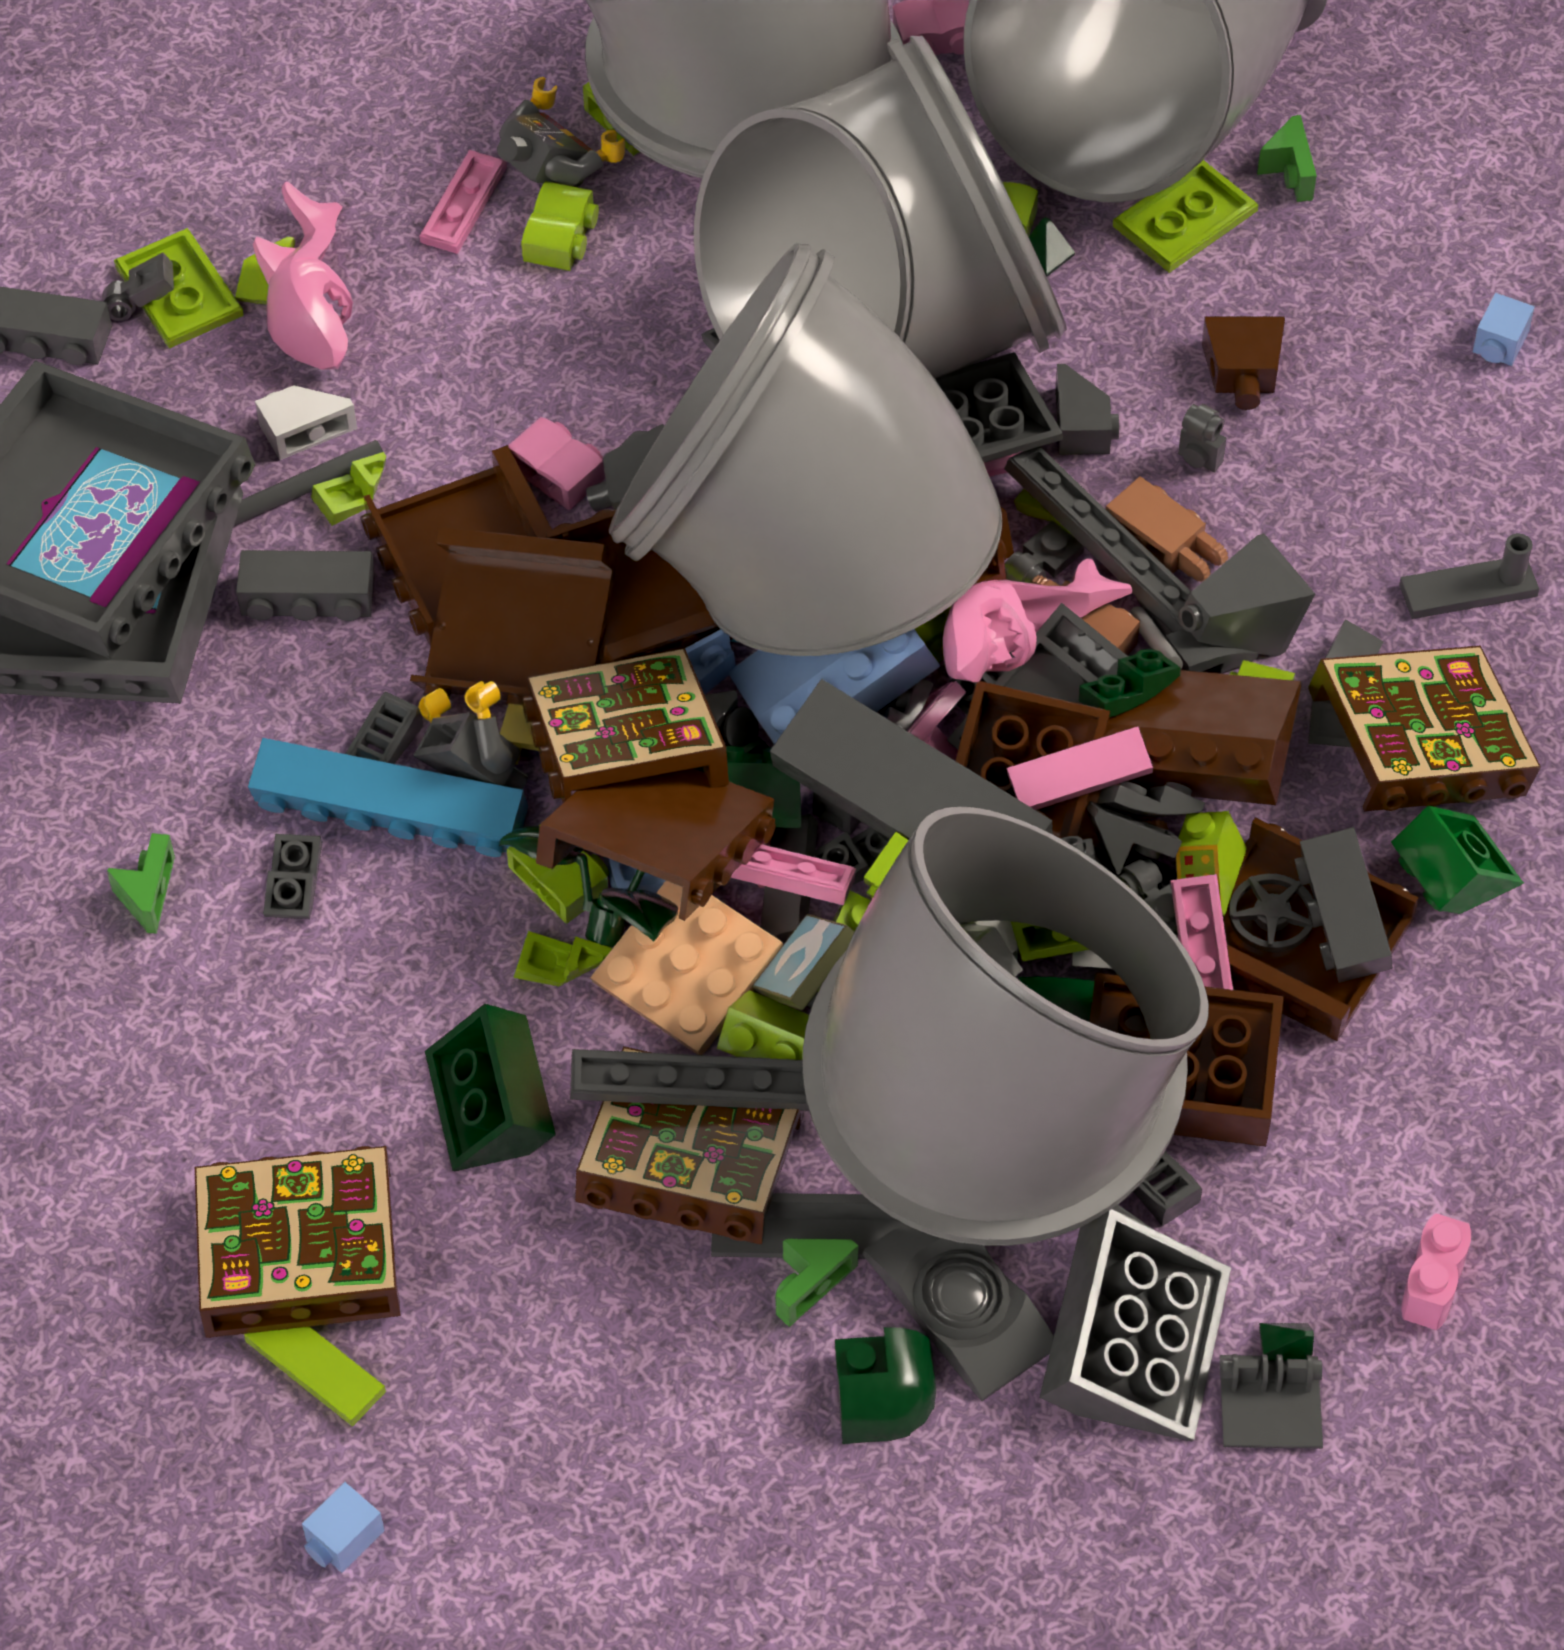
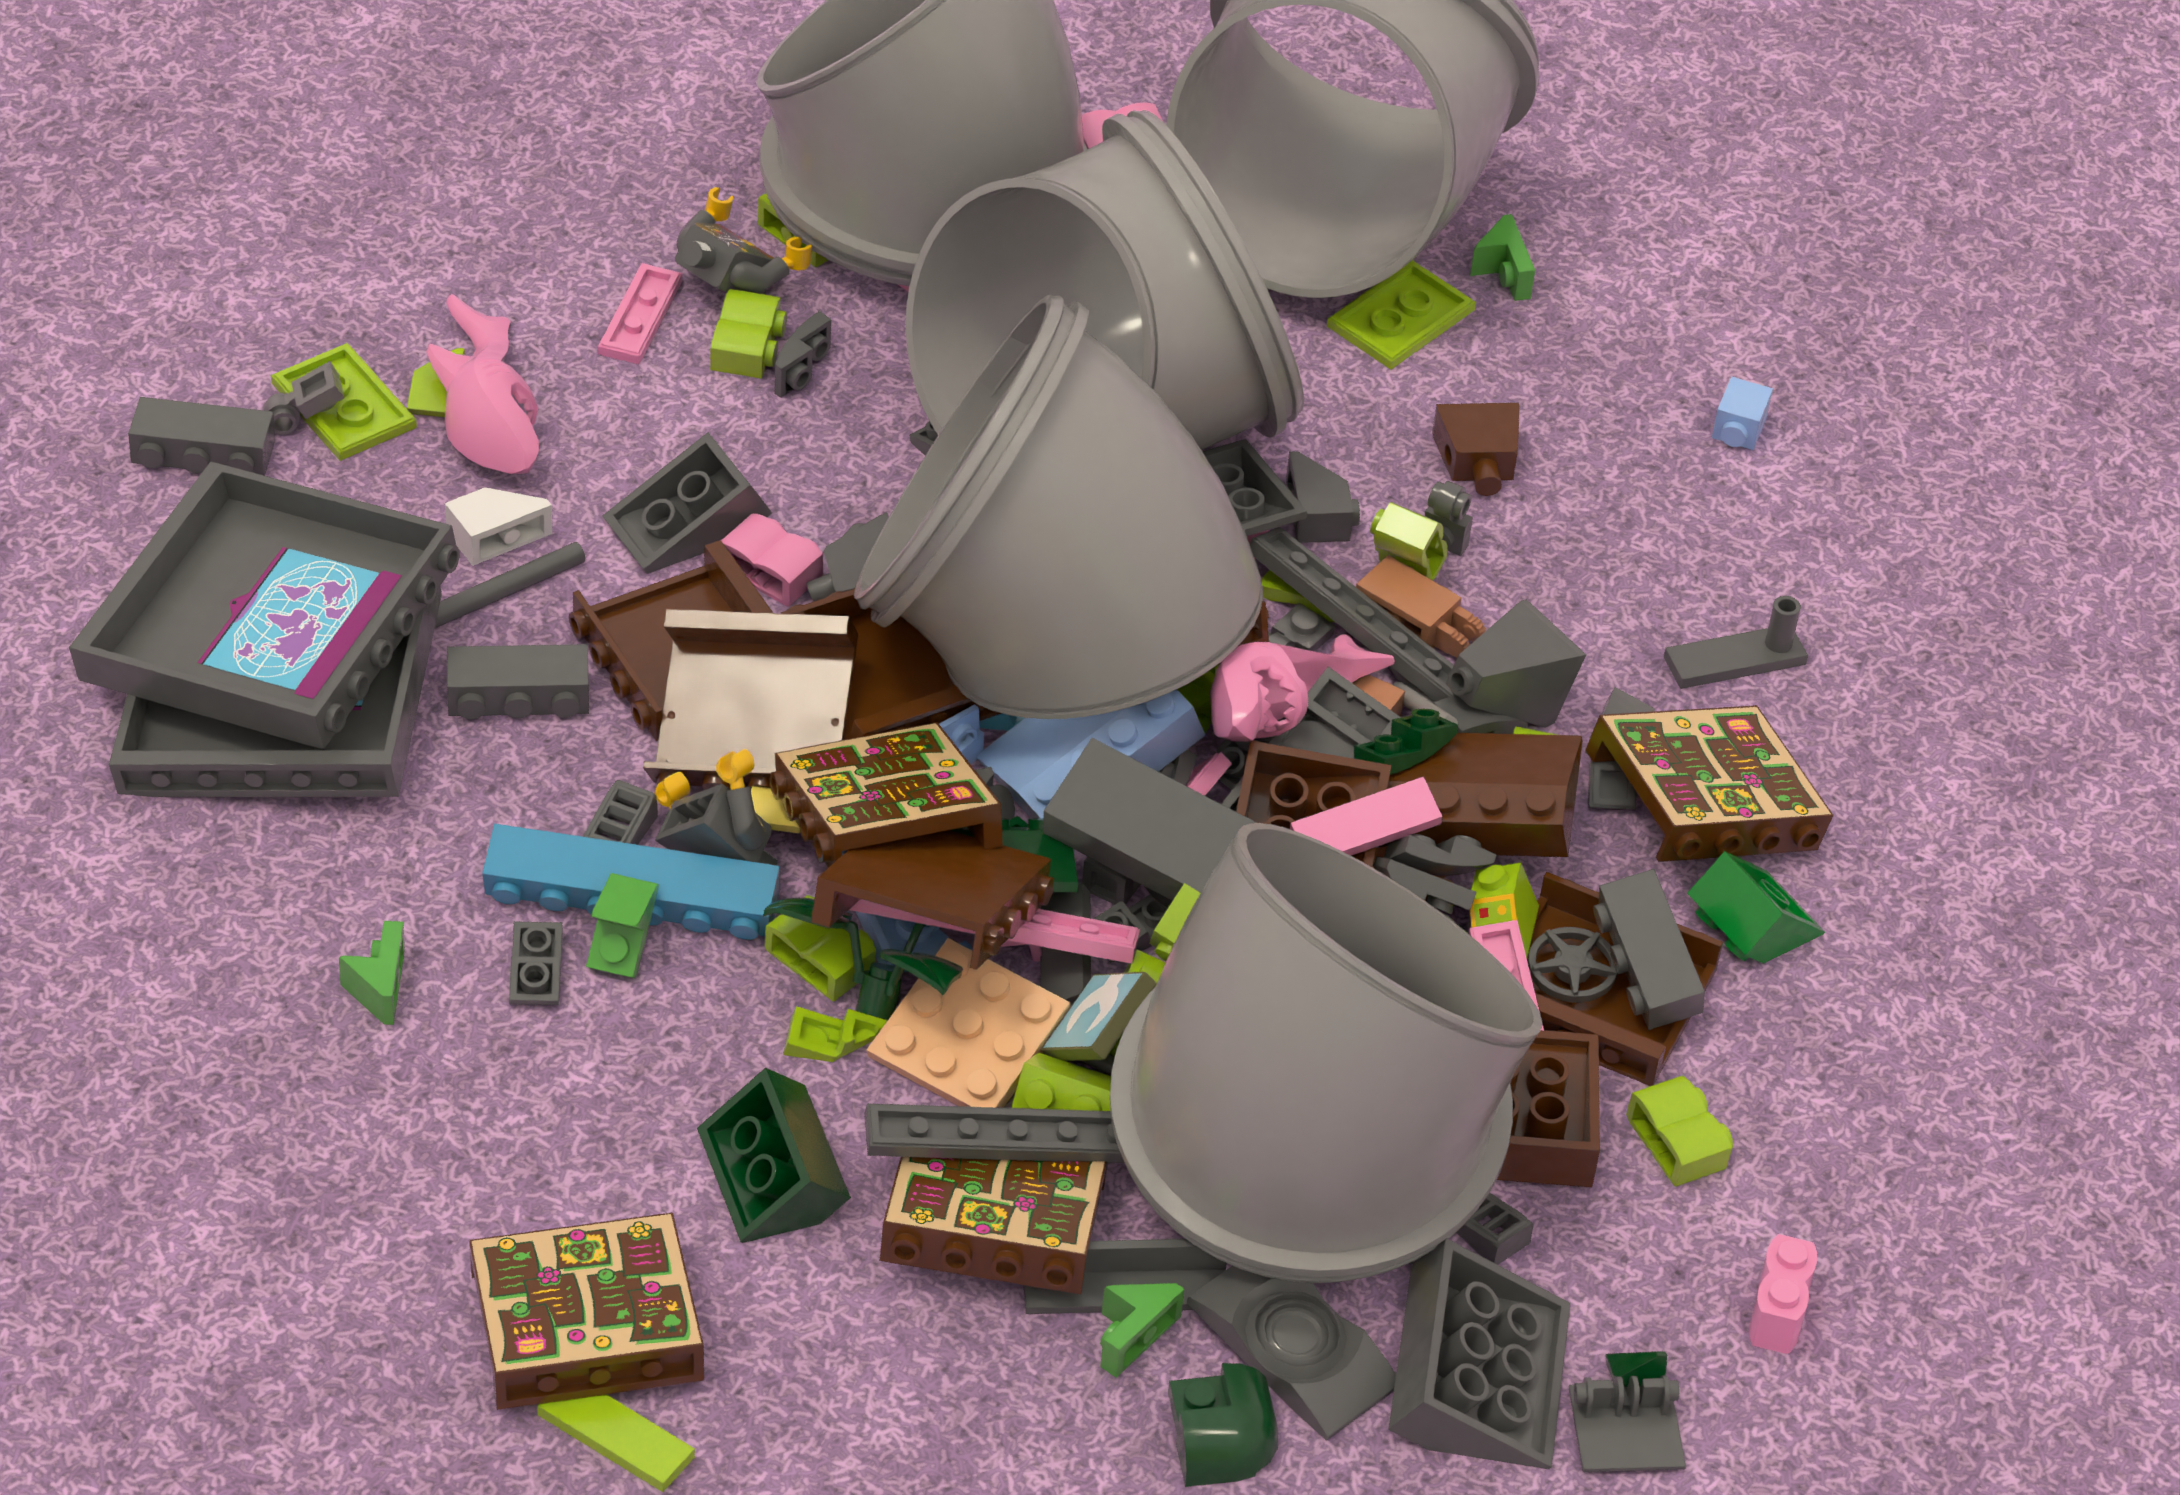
camera: 10 degrees left, 10 degrees down
(344, 495) = (553, 595): lime slope -> none
(372, 842) = (622, 925): none -> bright green slope
(482, 407) = (684, 507): none -> dark grey slope
(600, 255) = (794, 361): none -> dark grey slope
(1161, 463) = (1409, 539): none -> lime brick
(1357, 1092) = (1680, 1130): none -> lime brick

